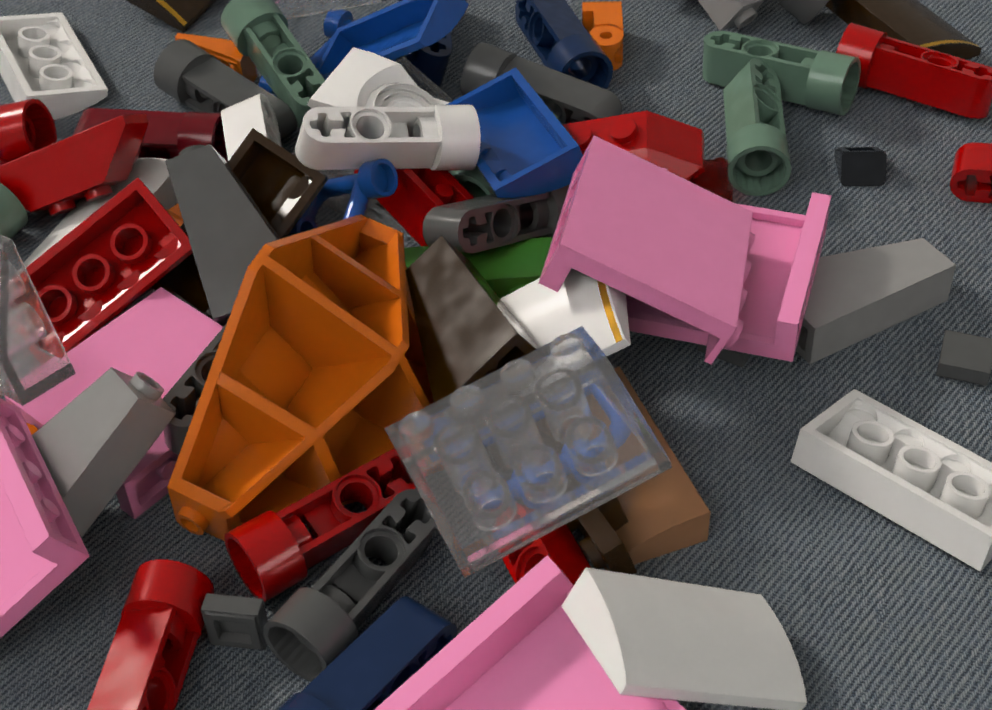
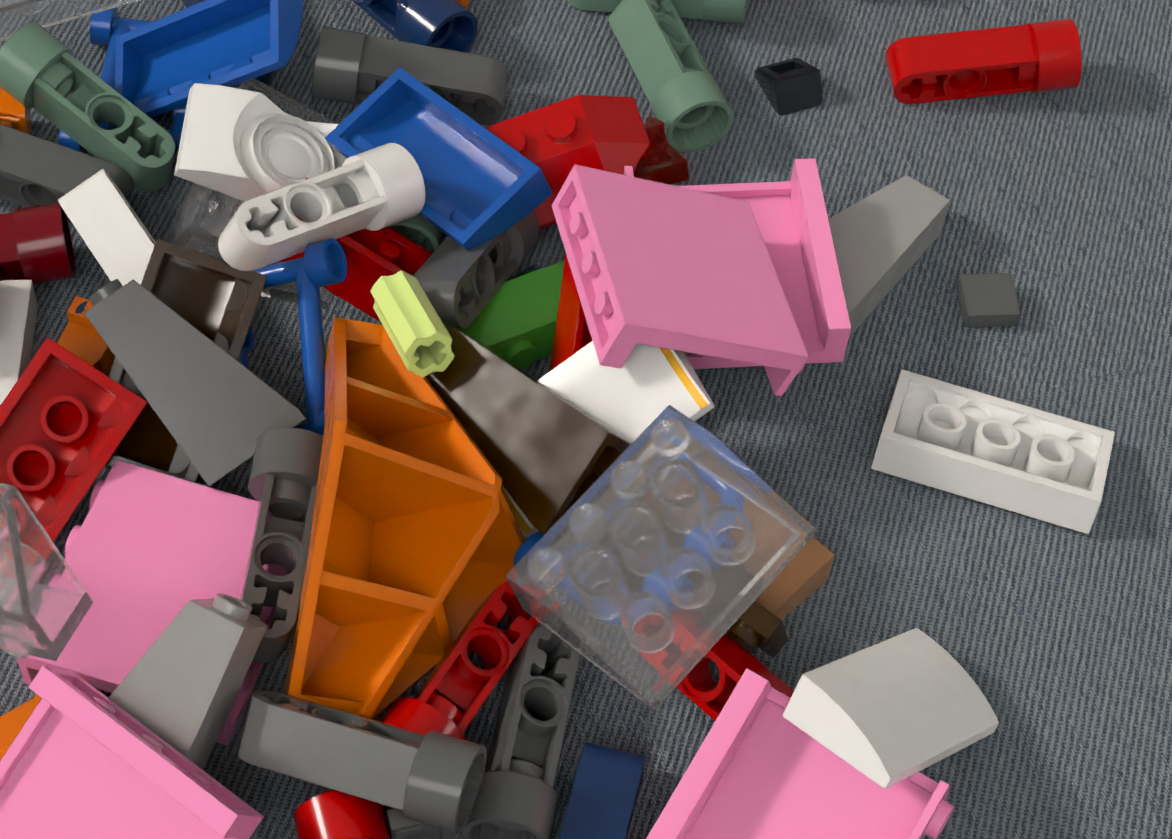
camera: 30 degrees left, 10 degrees up
(231, 563) = (426, 775): none -> dark grey beam
(410, 227) = (412, 324): none -> yellowish green axle

